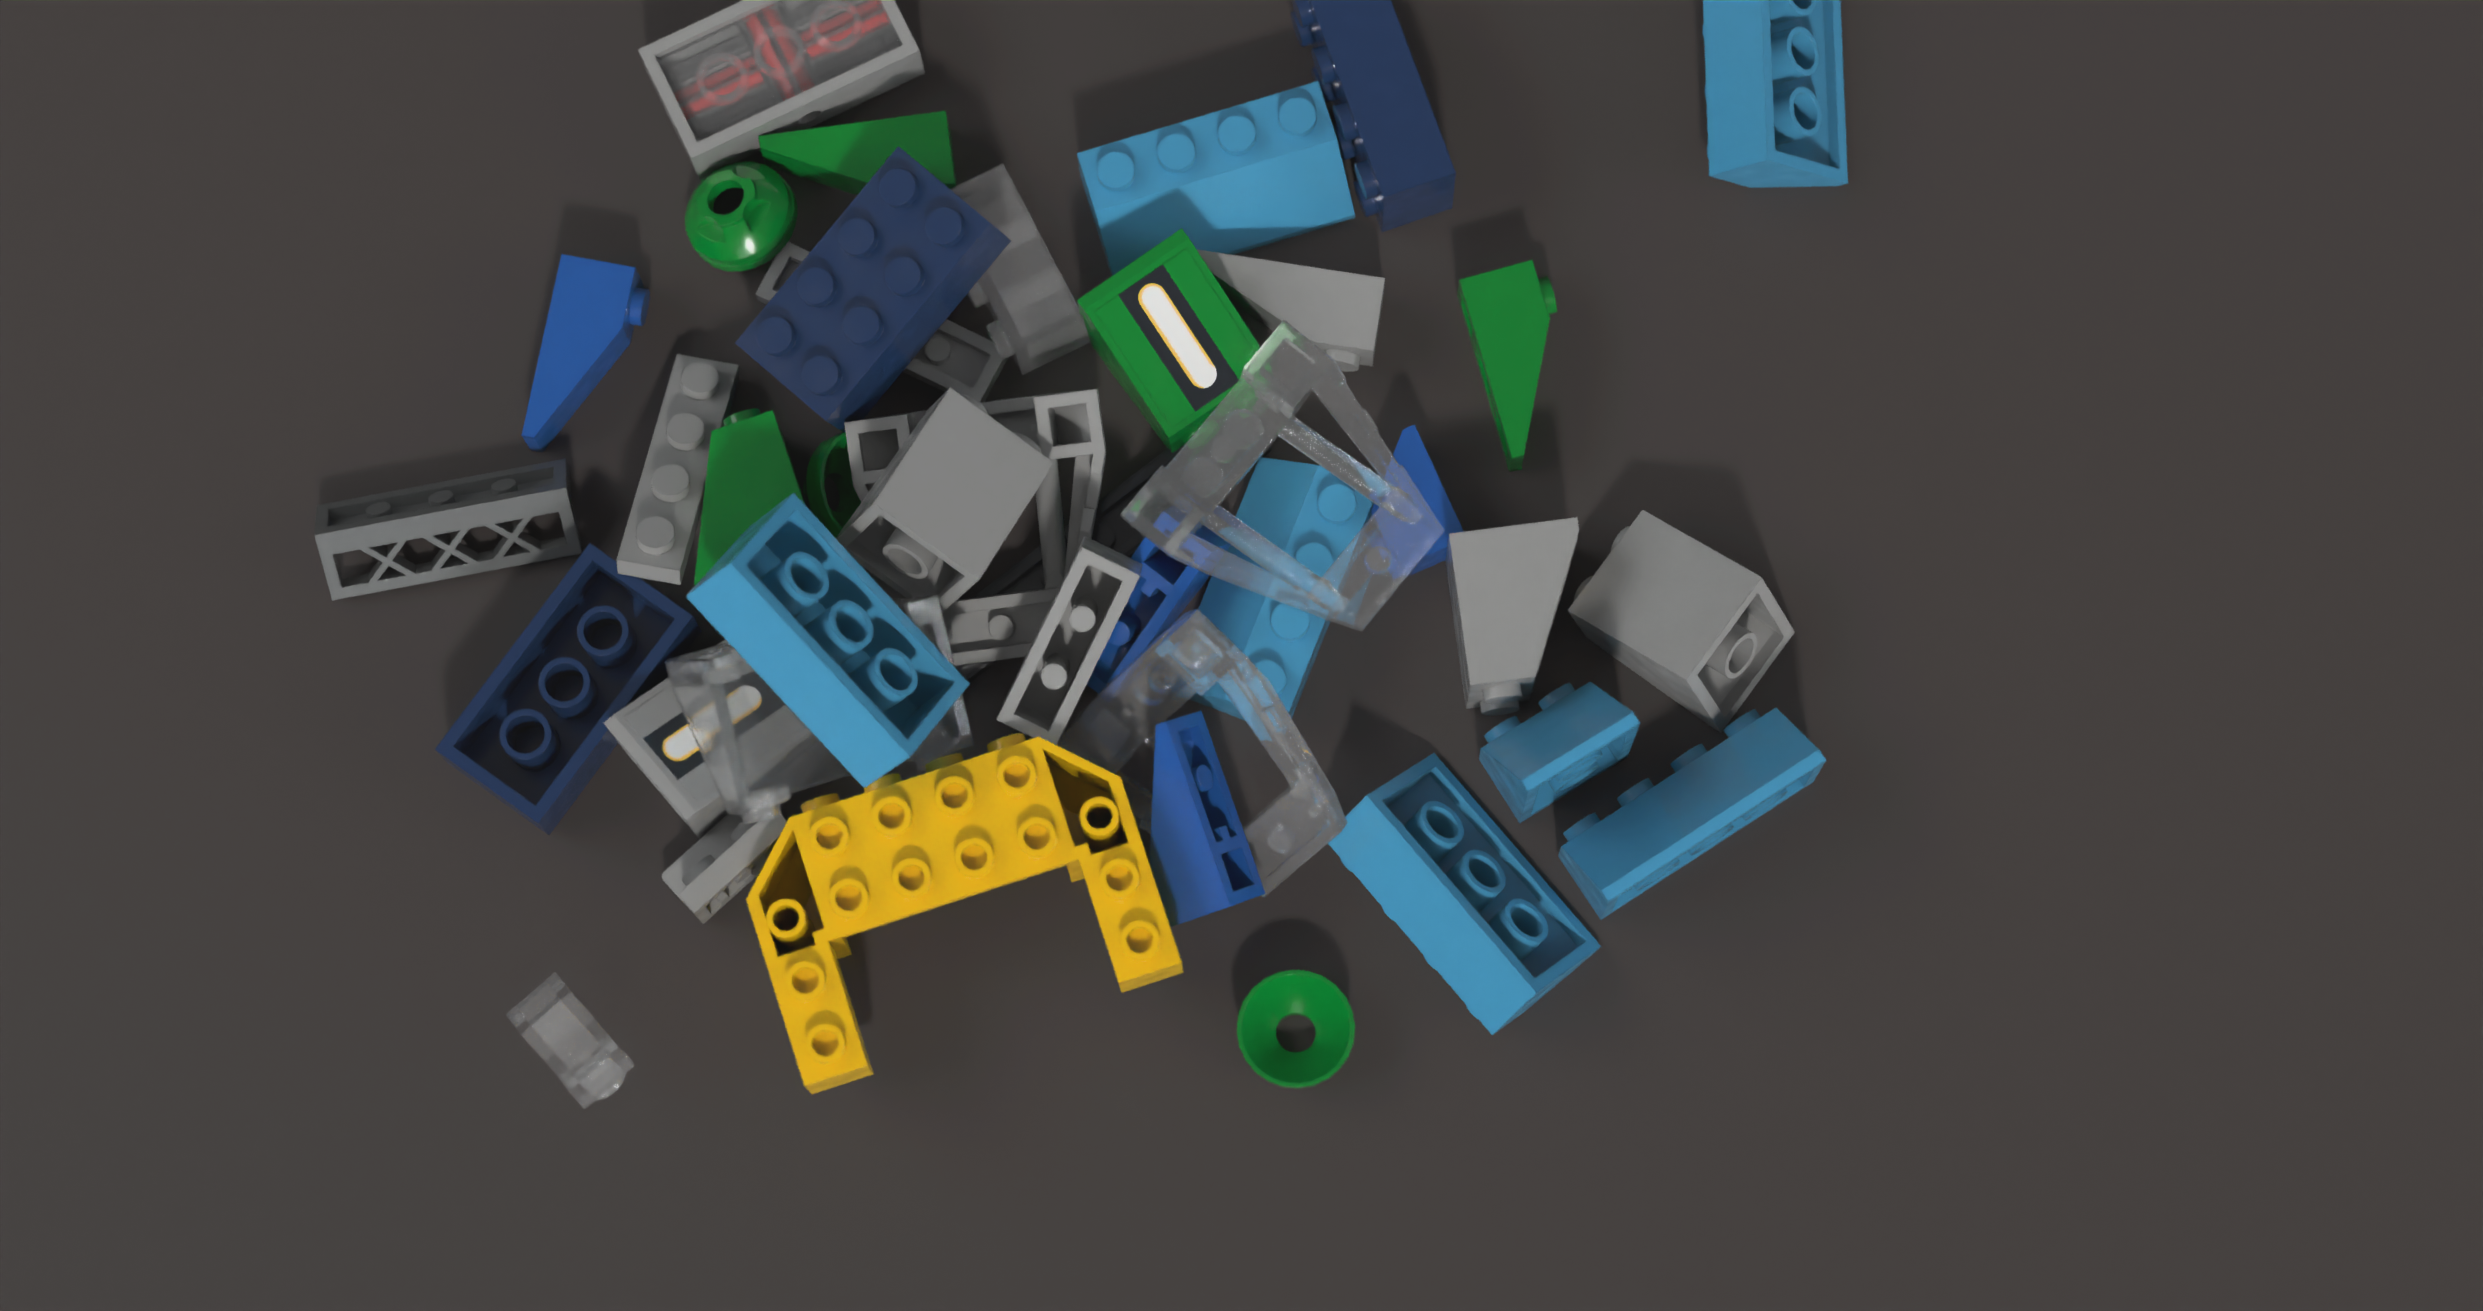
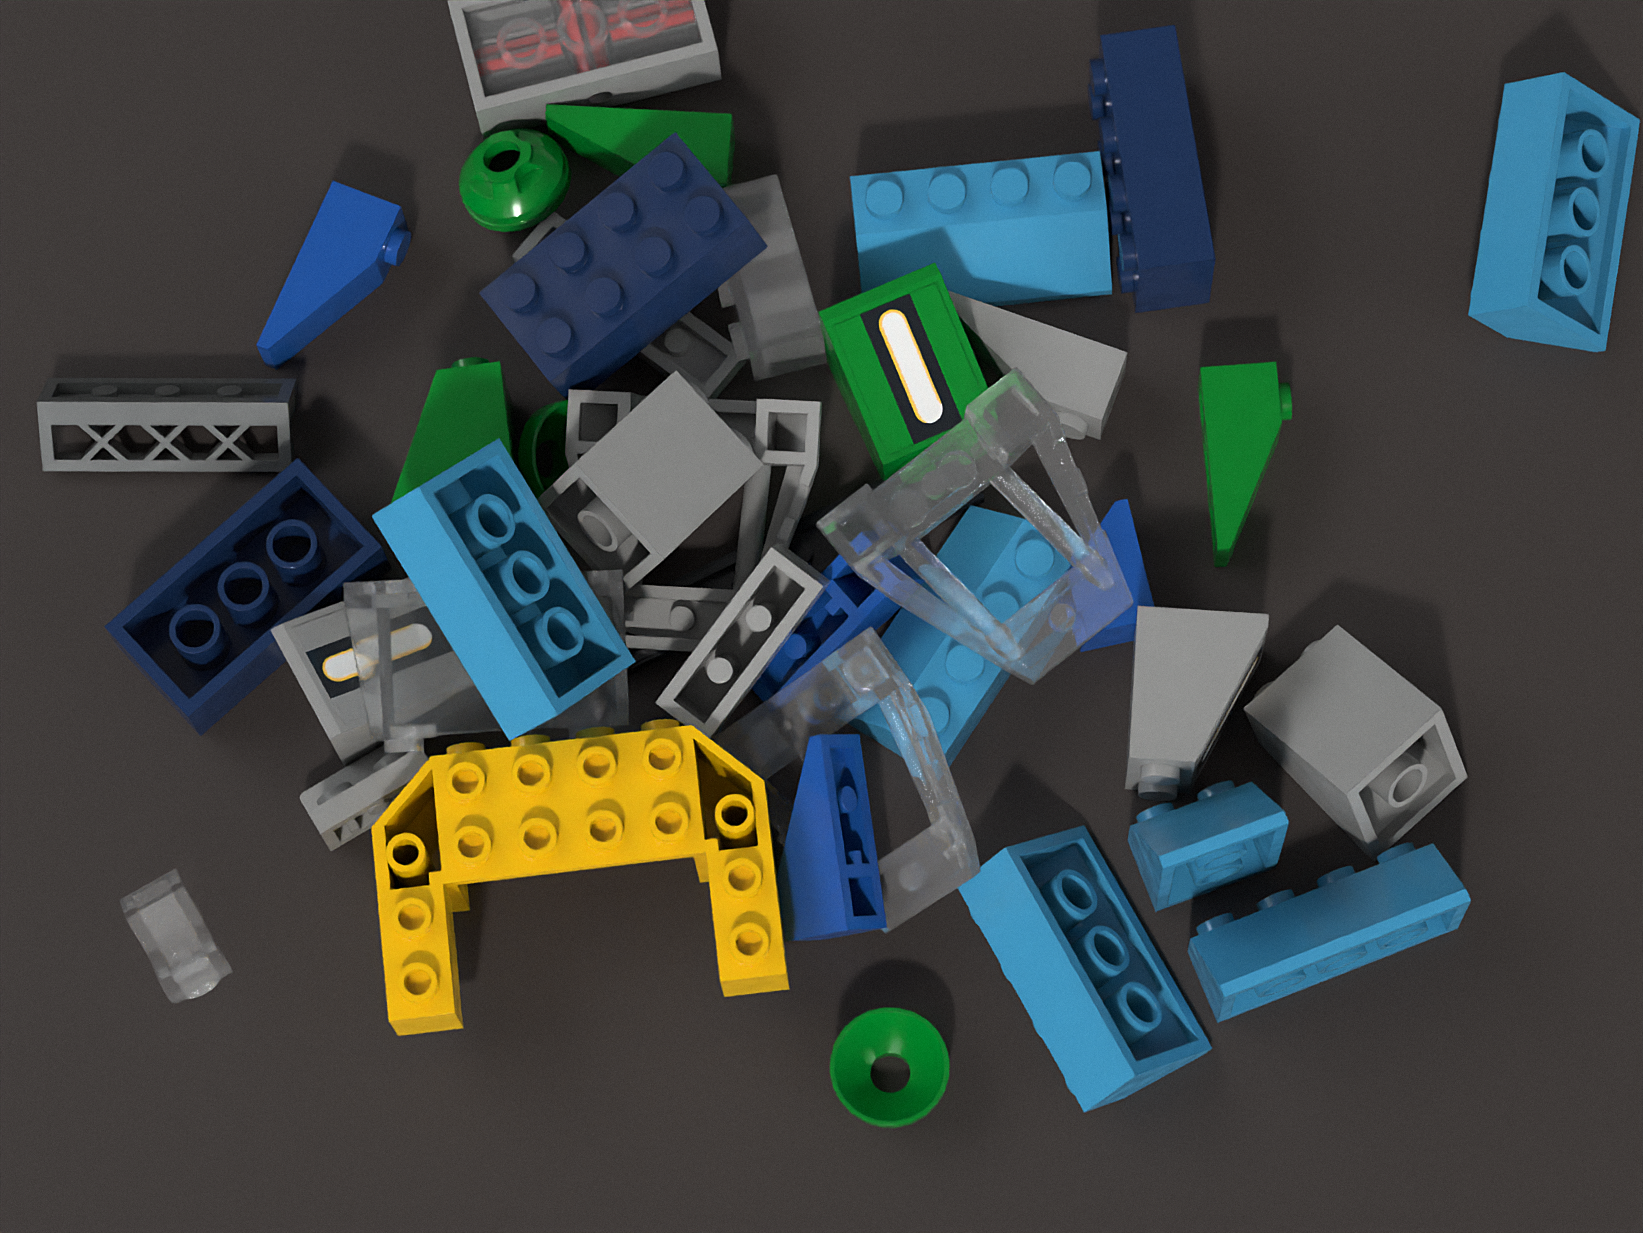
camera: 15 degrees right, 5 degrees down
(675, 470) = (384, 426): light grey plate -> none

